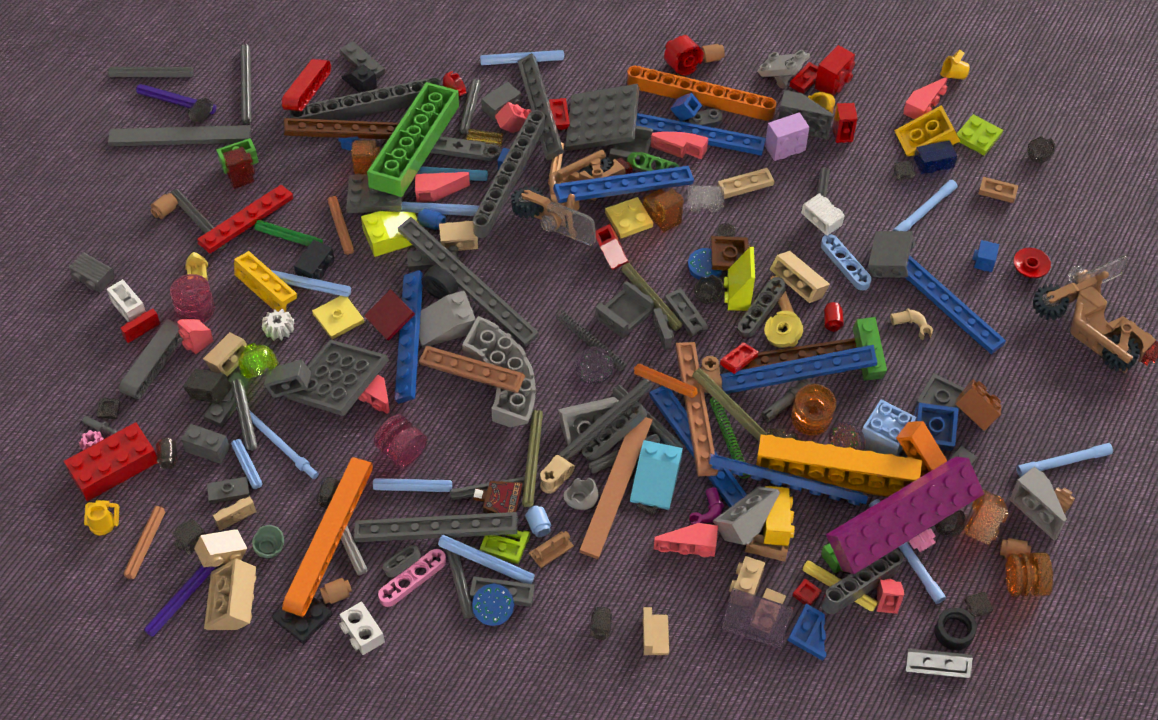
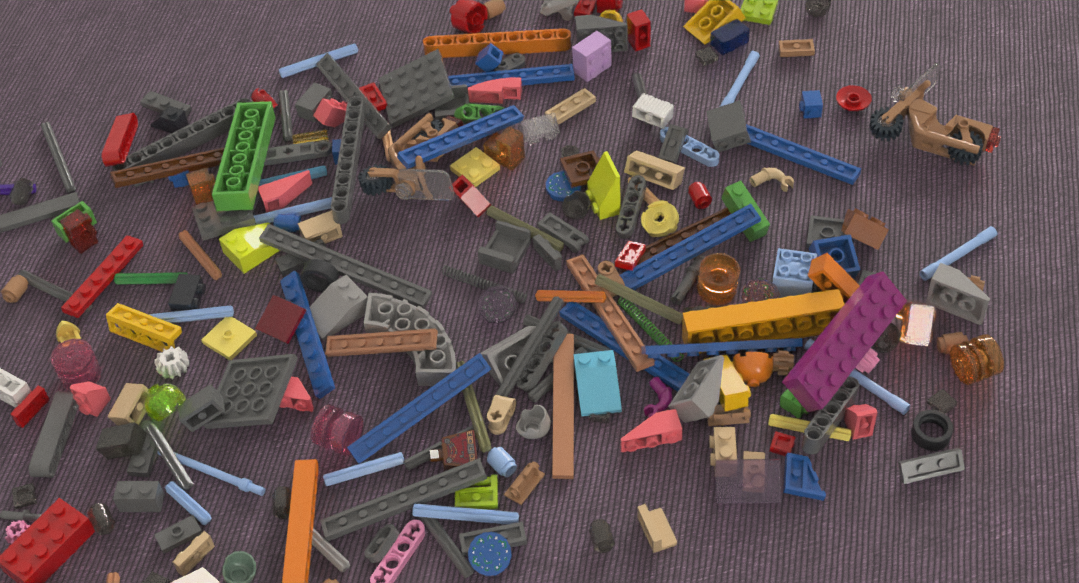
camera: 15 degrees left, 5 degrees down
(482, 444) = (418, 408): none -> blue plate
(809, 510) = (754, 367): none -> orange cylinder
(829, 254) = (673, 143): none -> dark grey plate
(840, 513) = (783, 362): none -> medium nougat gear

